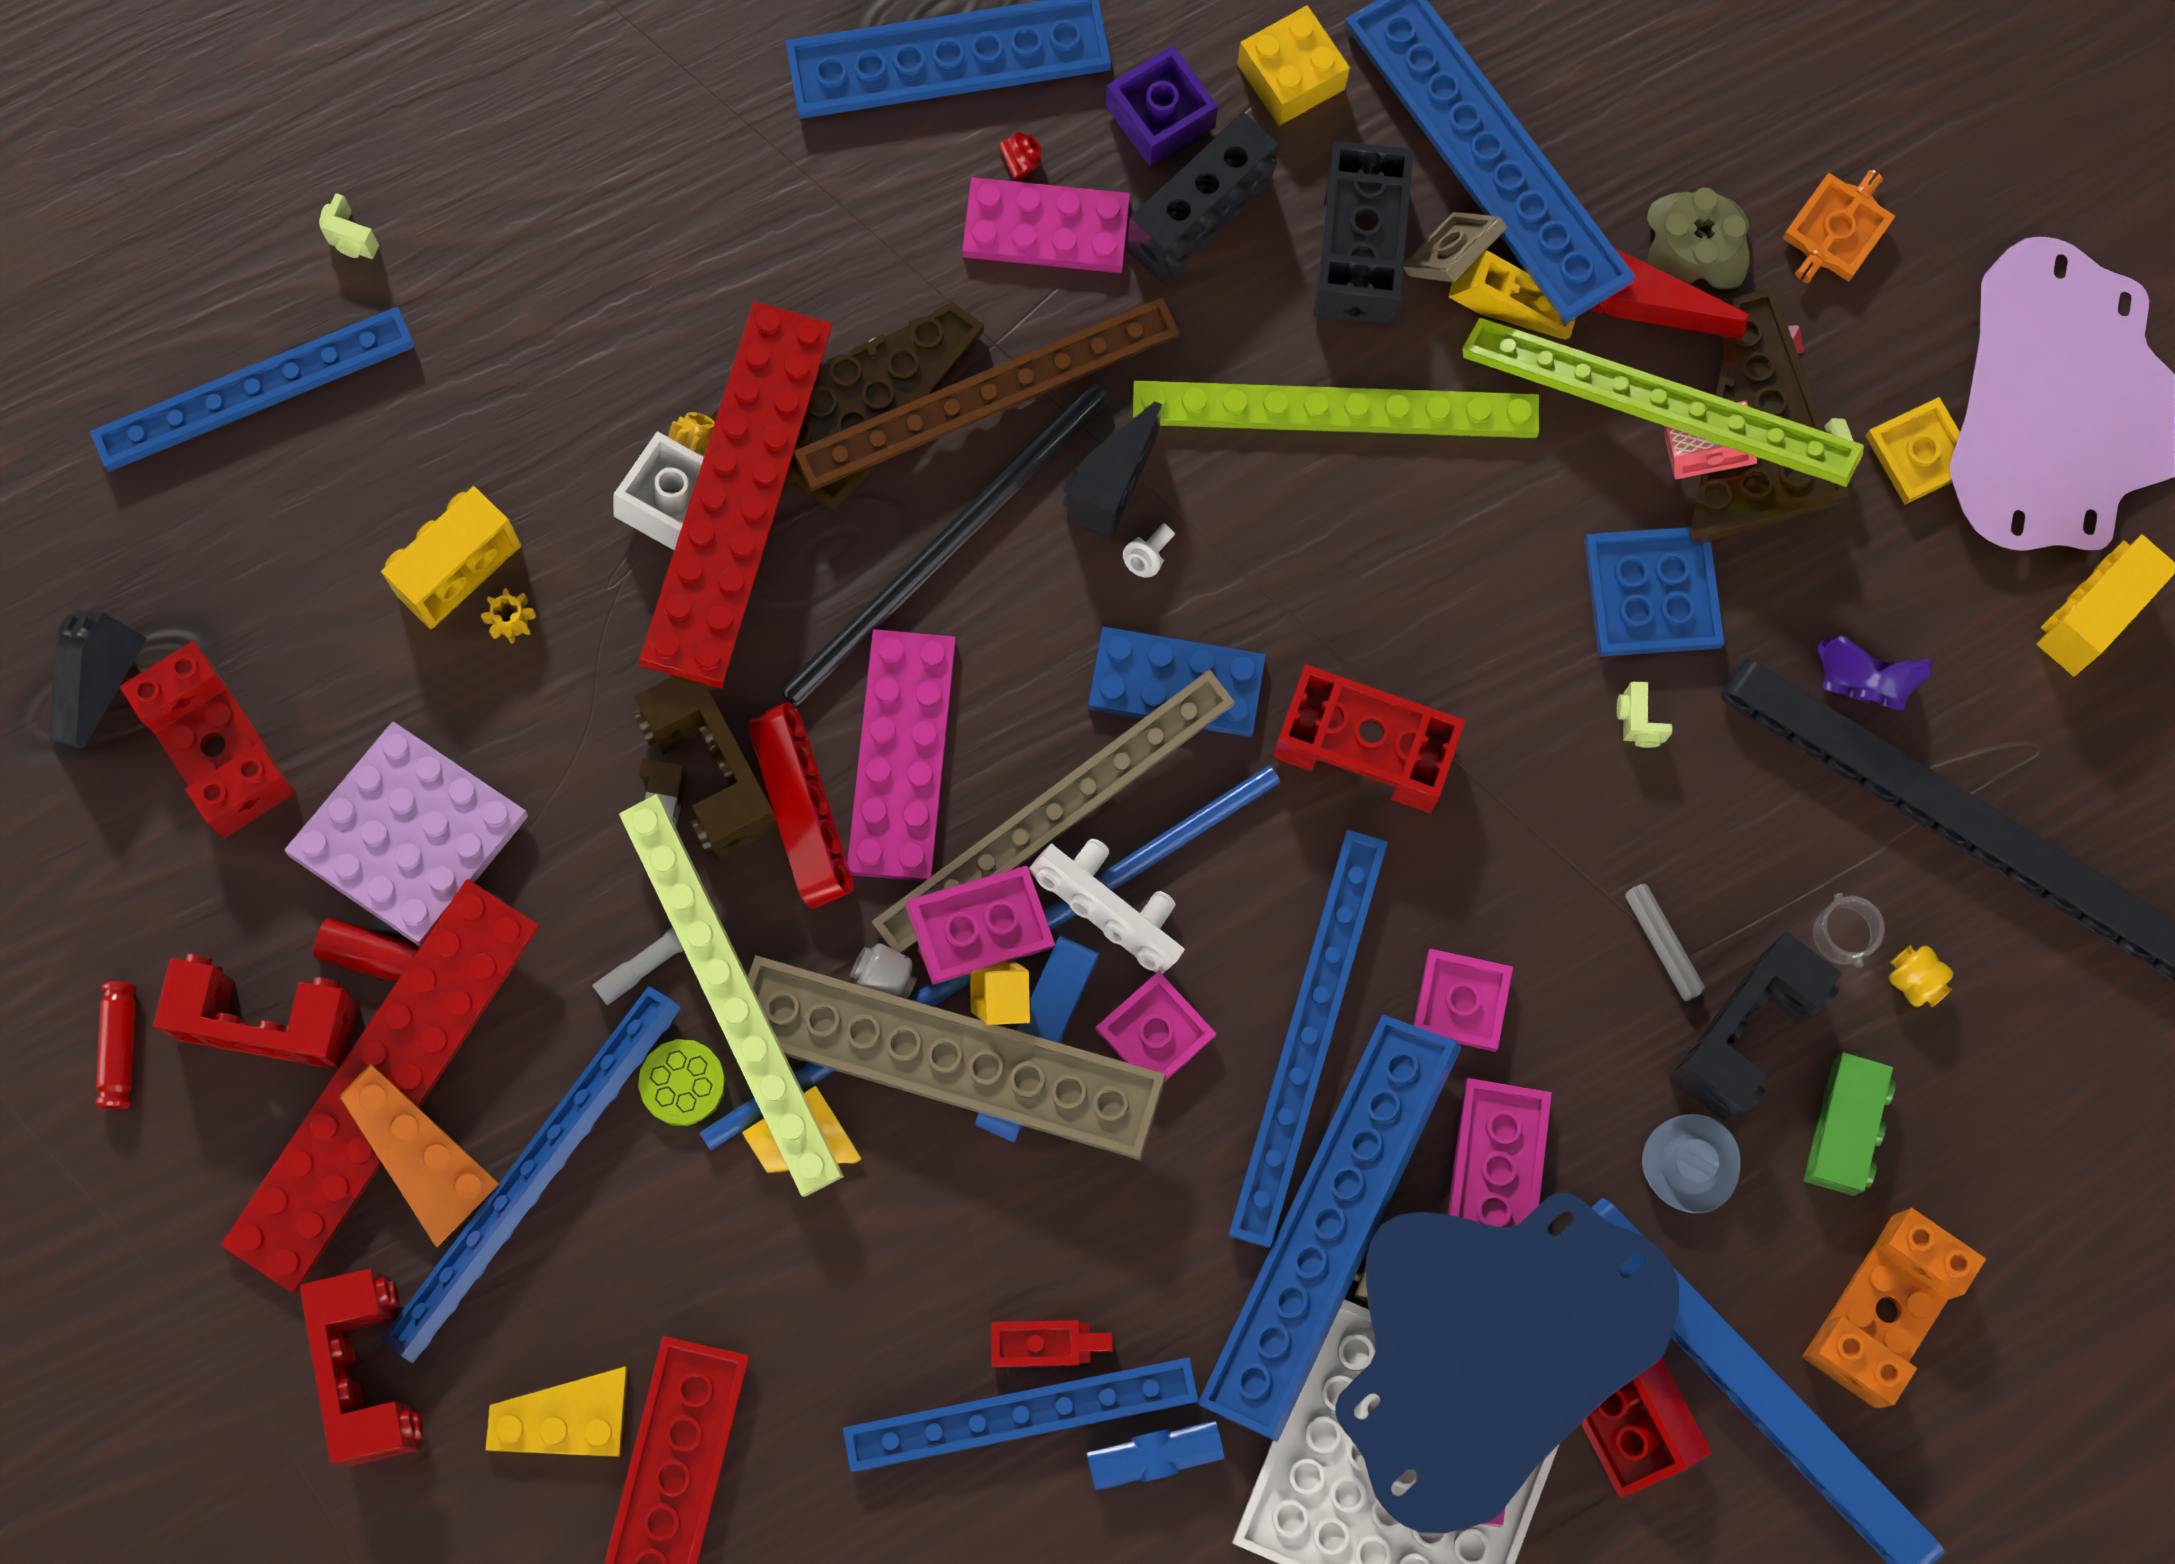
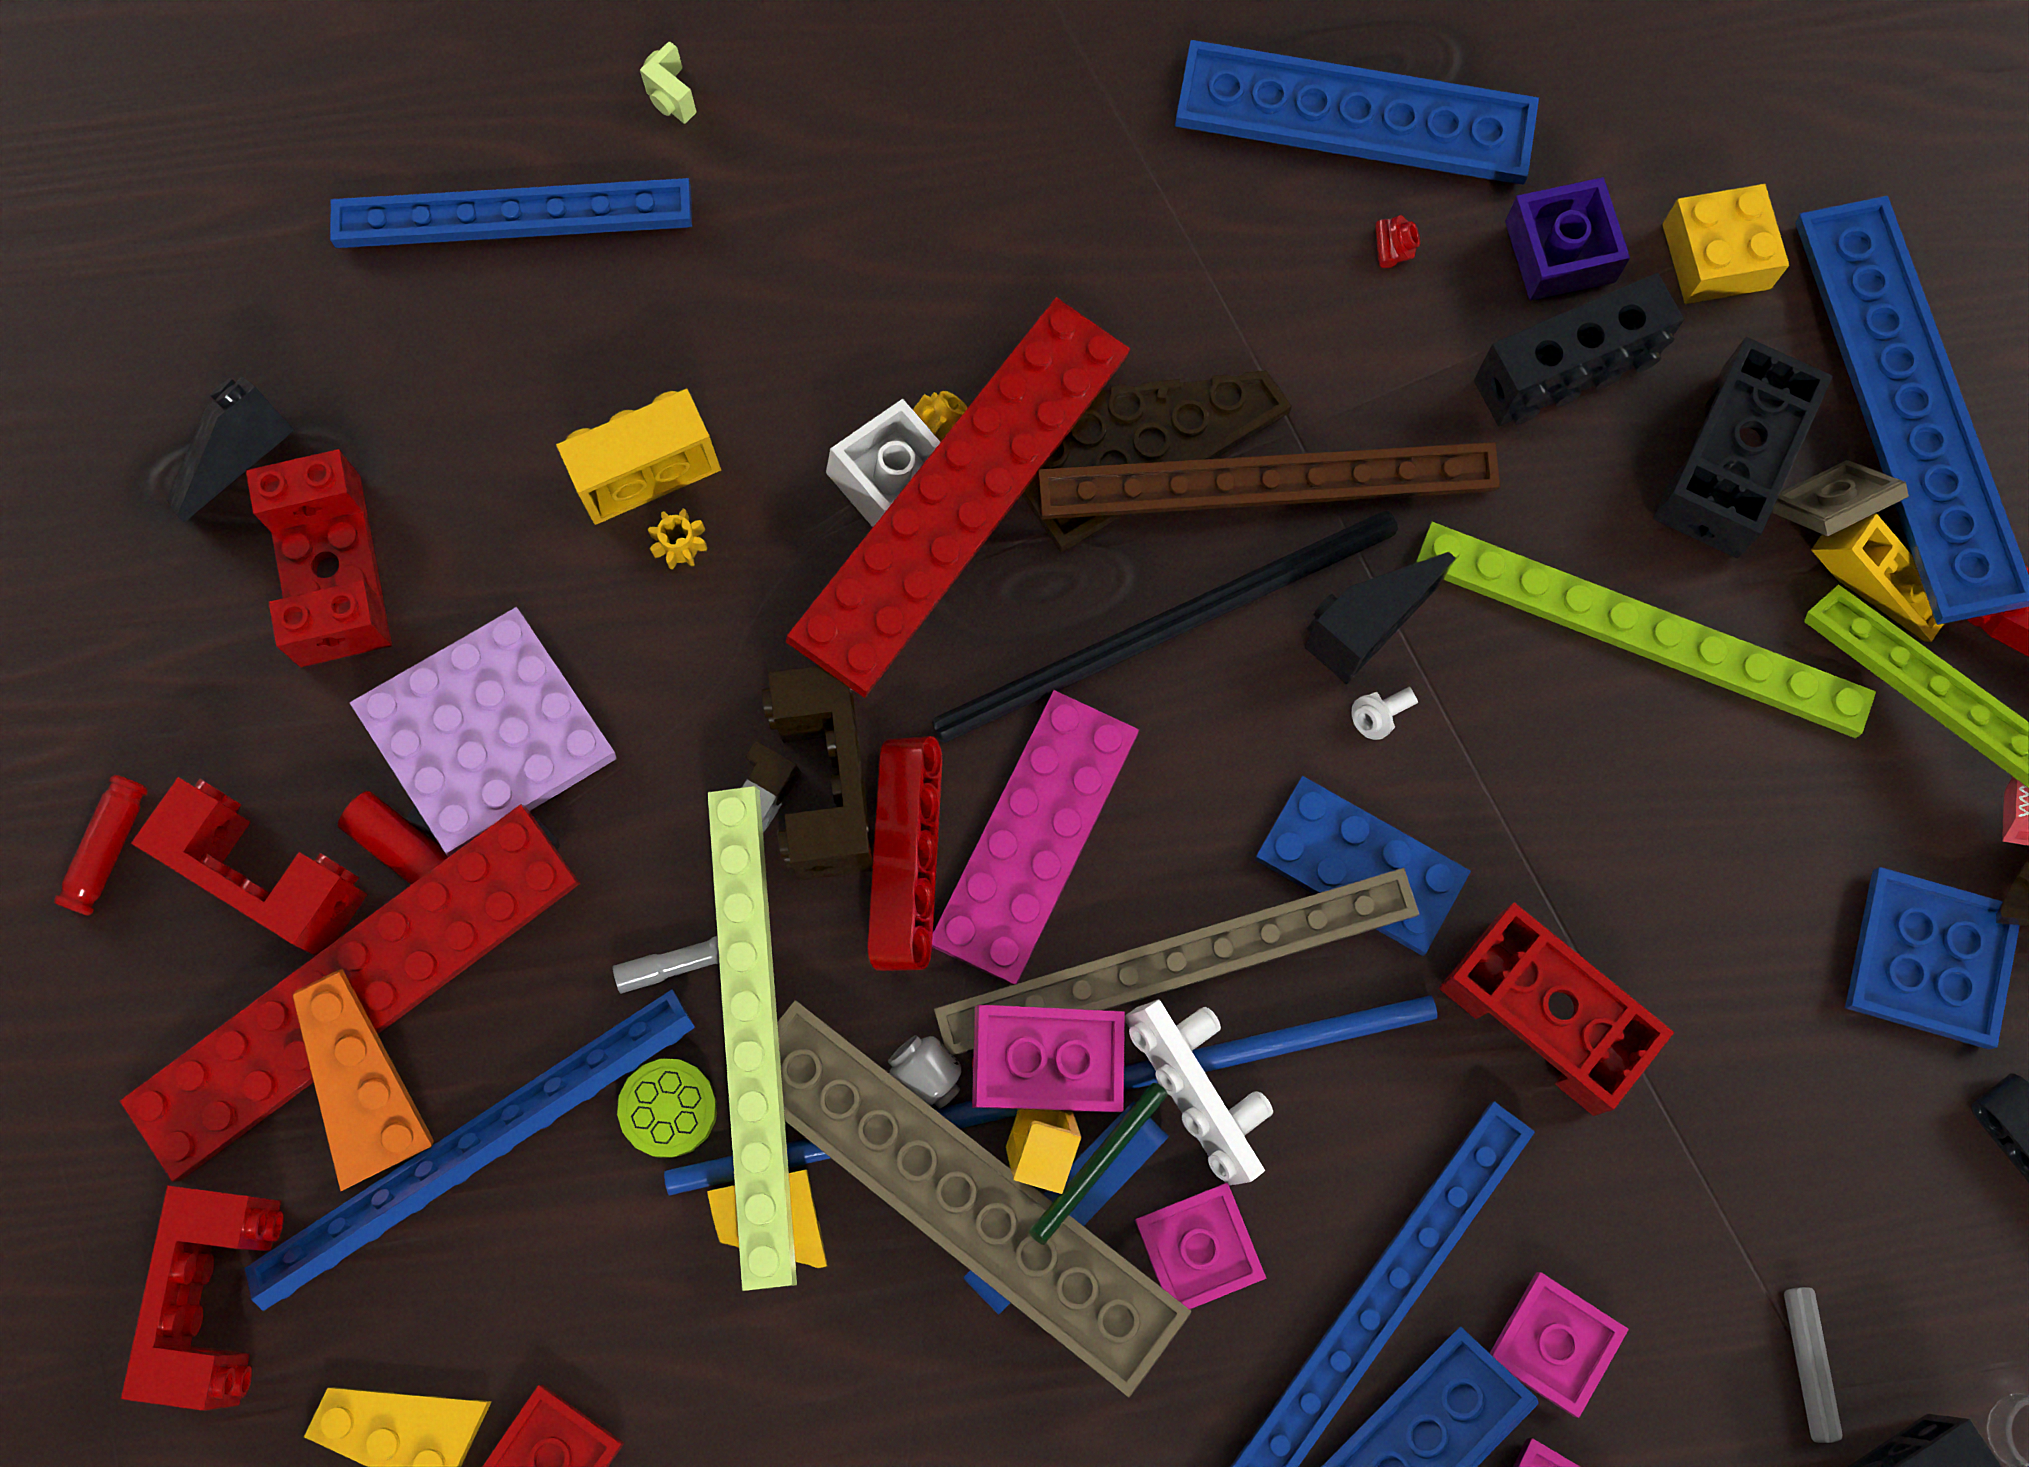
camera: 25 degrees right, 0 degrees up
(1046, 225) = (1396, 324): dark pink plate -> none
(1049, 990) = (1098, 1164): none -> dark green bar
(1633, 710) = (1866, 1089): yellowish green bracket -> none

